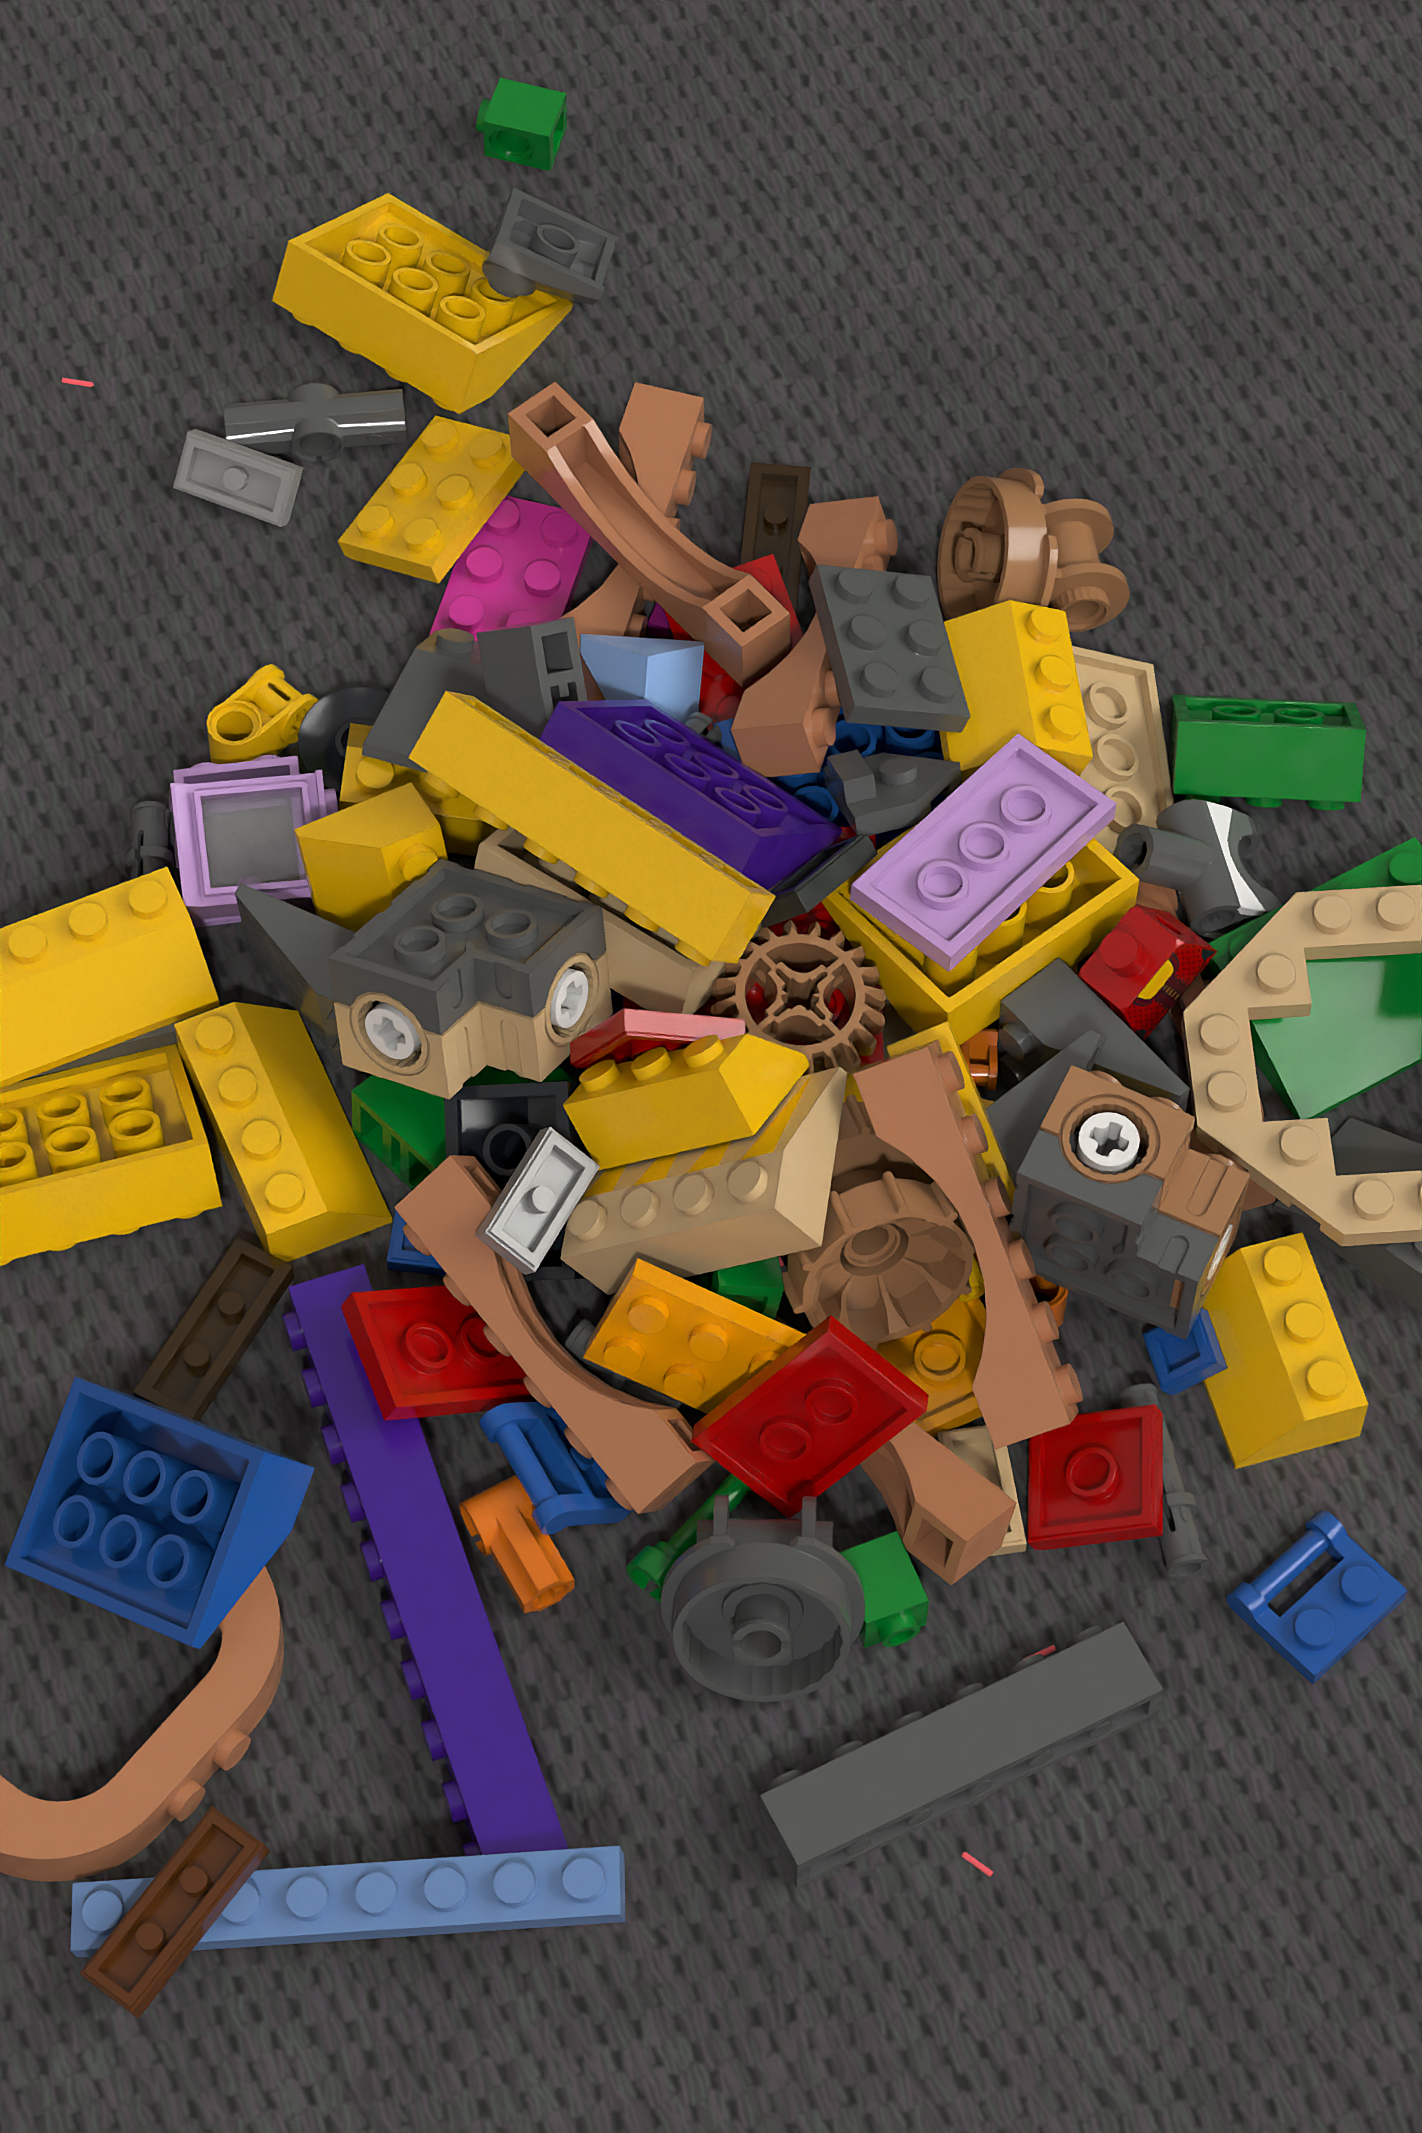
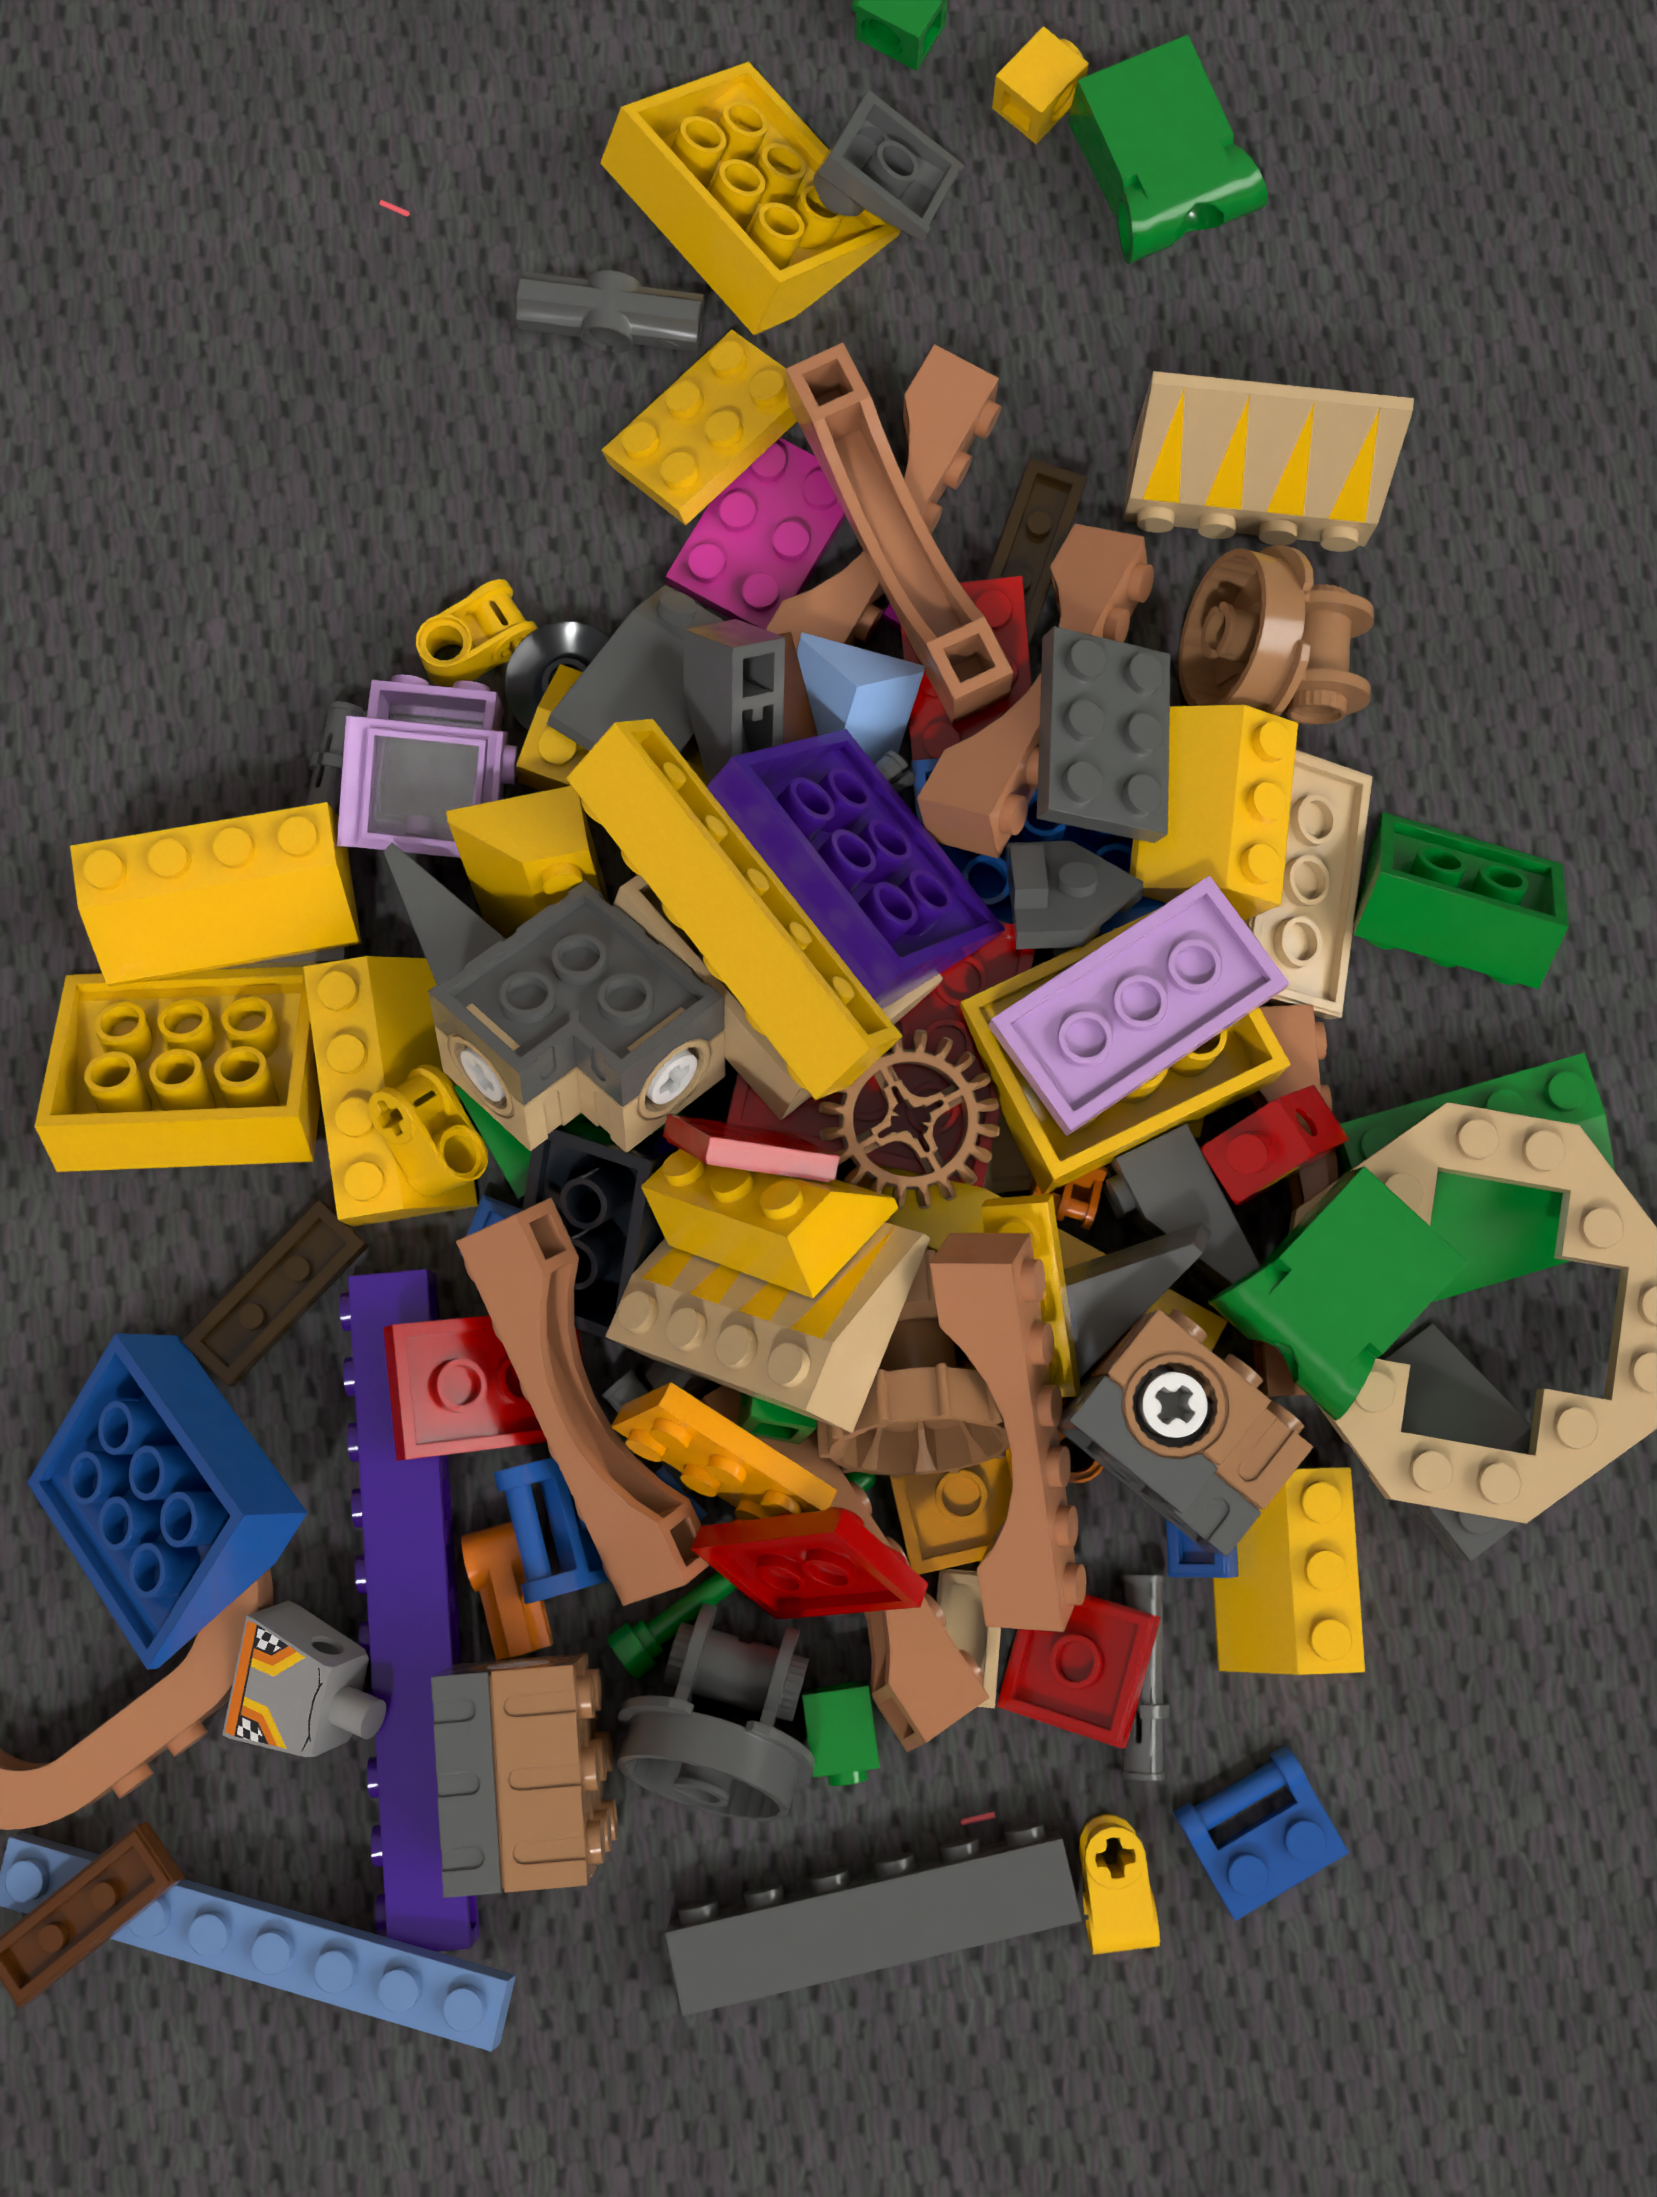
camera: 15 degrees right, 20 degrees up
(238, 477) = (520, 356): light grey plate -> none
(337, 1660) = (299, 1685): none -> light grey torso
(342, 1139) = (430, 1136): none -> yellow piece
(537, 1200) = (592, 1279): light grey plate -> none
(586, 1656) = (521, 1774): none -> medium nougat piece
(672, 156) = (1039, 84): none -> yellow brick
(802, 185) = (1162, 149): none -> green piece
(818, 878) = (958, 997): pearl dark grey tile -> none
(968, 405) = (1263, 460): none -> tan slope
(976, 1863) = (862, 2020): coral piece -> none
(1194, 1677) = (1116, 1894): none -> yellow piece
(1200, 856) = (1357, 1031): dark grey connector -> none
(1240, 1041) = (1342, 1287): none -> green piece

